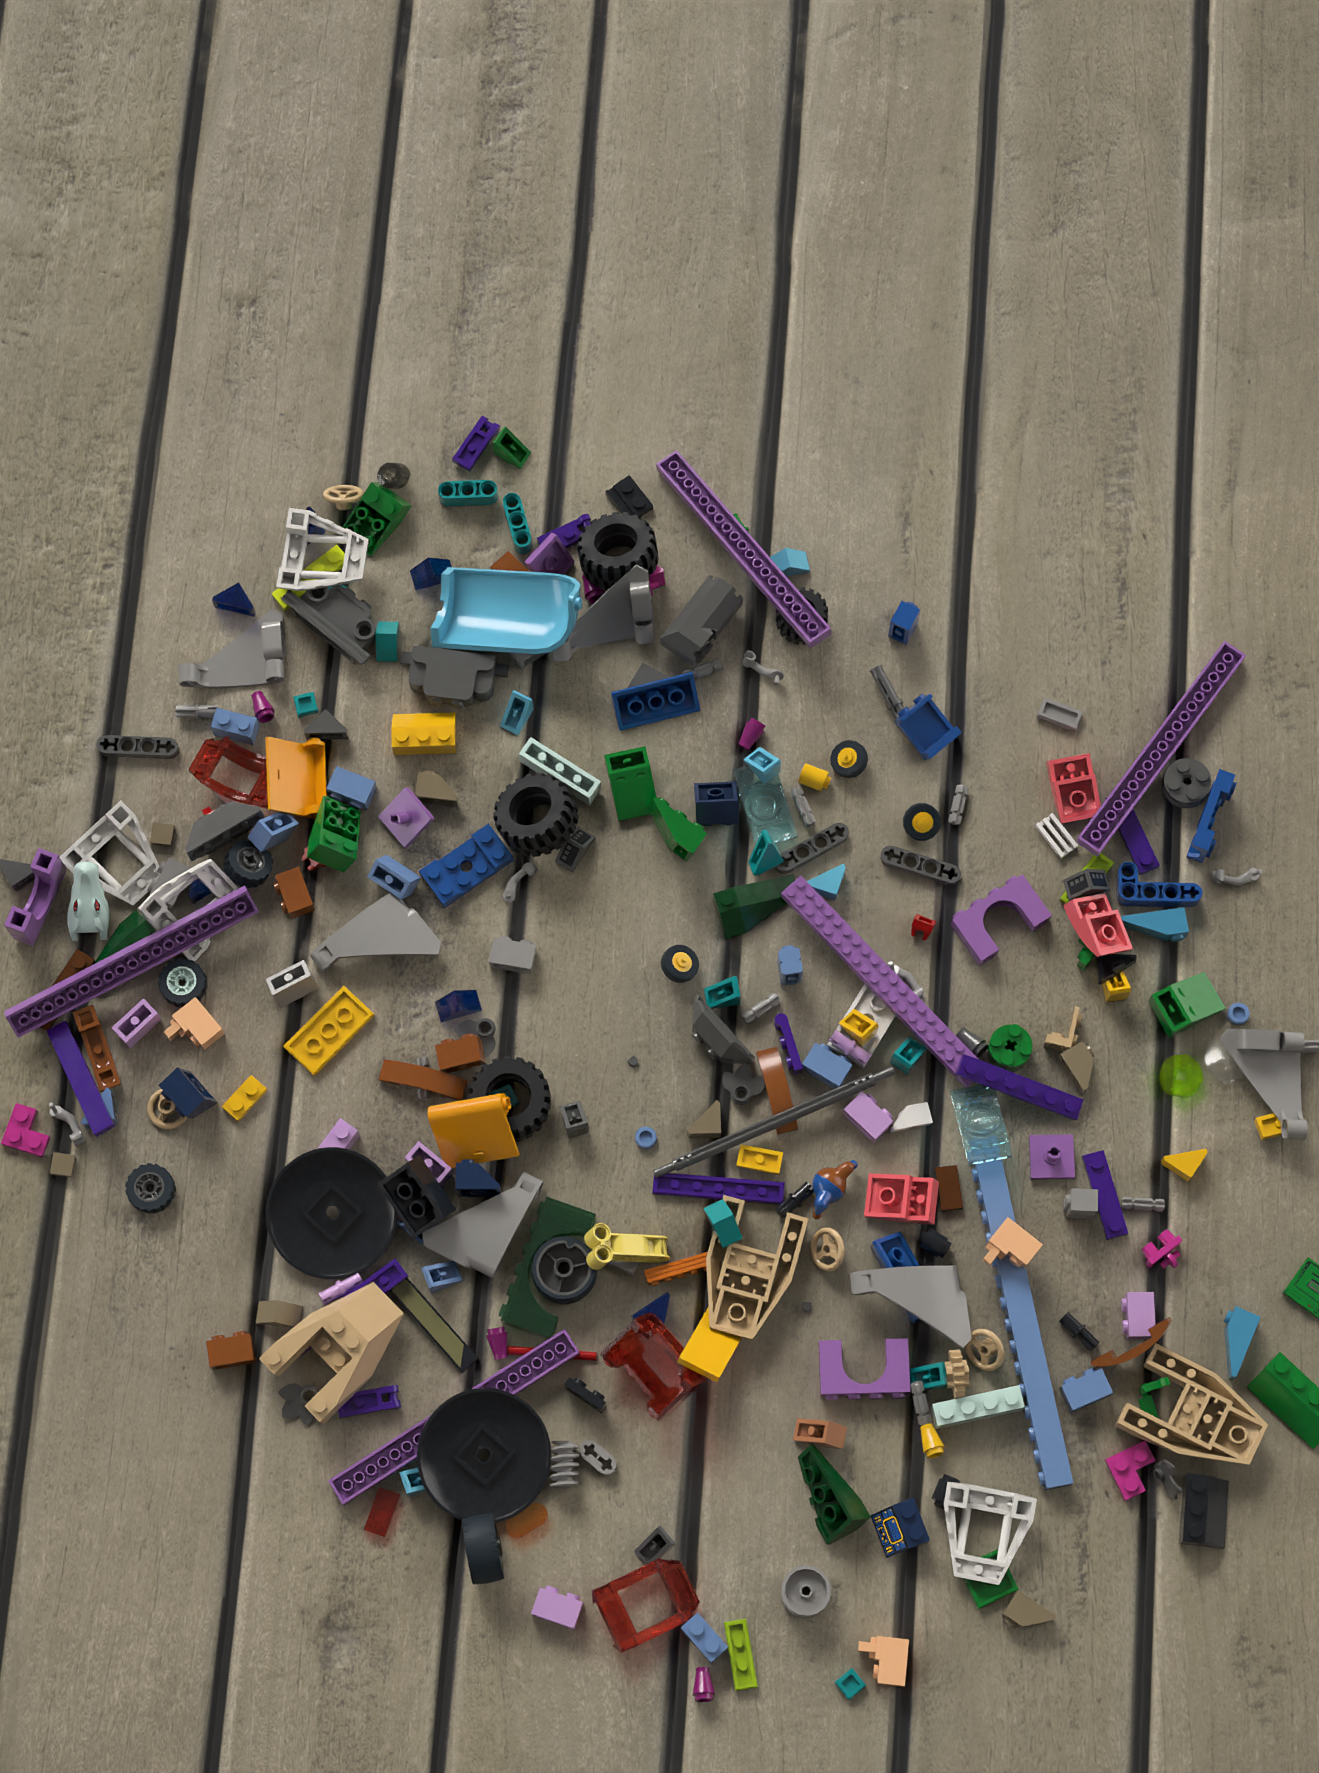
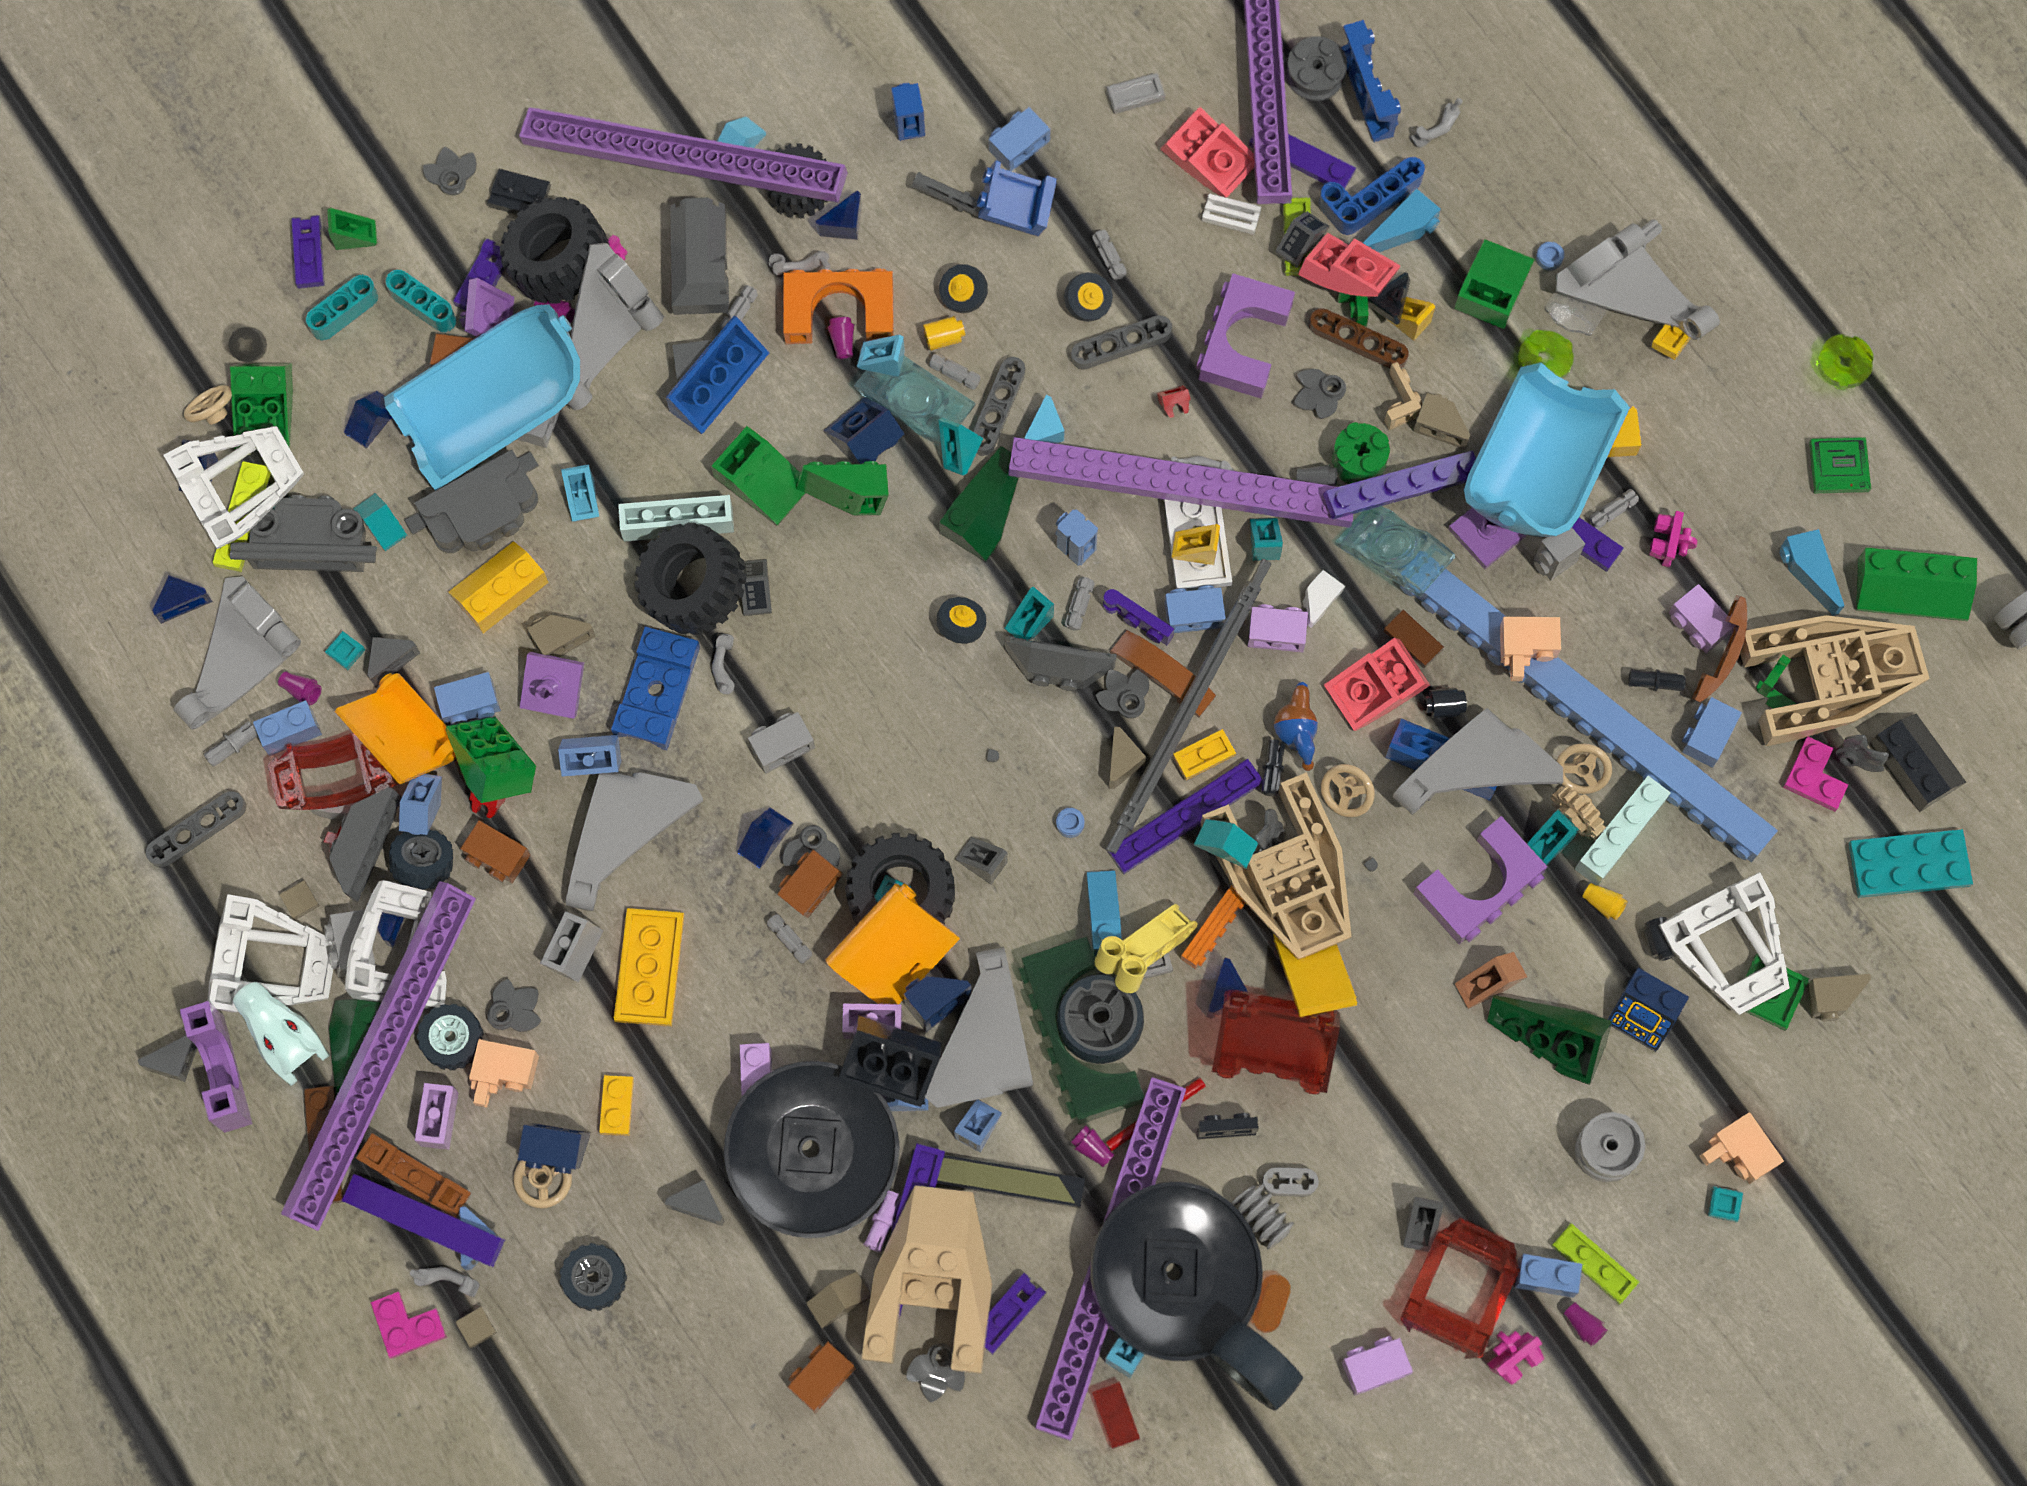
camera: 40 degrees left, 0 degrees up
(235, 994) = (517, 1005): none -> dark grey plate
(244, 1191) = (696, 1202): none -> dark grey slope
(423, 1078) = (790, 939): dark orange slope -> none
(600, 453) = (451, 168): none -> dark grey plate
(622, 1205) = (1103, 907): none -> dark azure slope
(645, 1664) = (1513, 1350): none -> dark pink hips
(751, 688) = (807, 289): none -> orange arch
(758, 1239) = (1272, 832): none -> dark grey plate
(811, 660) = (842, 220): none -> clear blue slope
(850, 1047) = (1204, 572): lavender pin -> none
(920, 1403) = (1564, 871): light grey axle -> none
(960, 690) = (1019, 139): none -> medium blue brick
(1015, 989) = (1316, 394): none -> dark grey plate
(1068, 976) = (1356, 343): none -> reddish brown beam
(1120, 1135) = (1543, 453): none -> medium azure panel
(1144, 1570) = (1910, 863): none -> teal plate

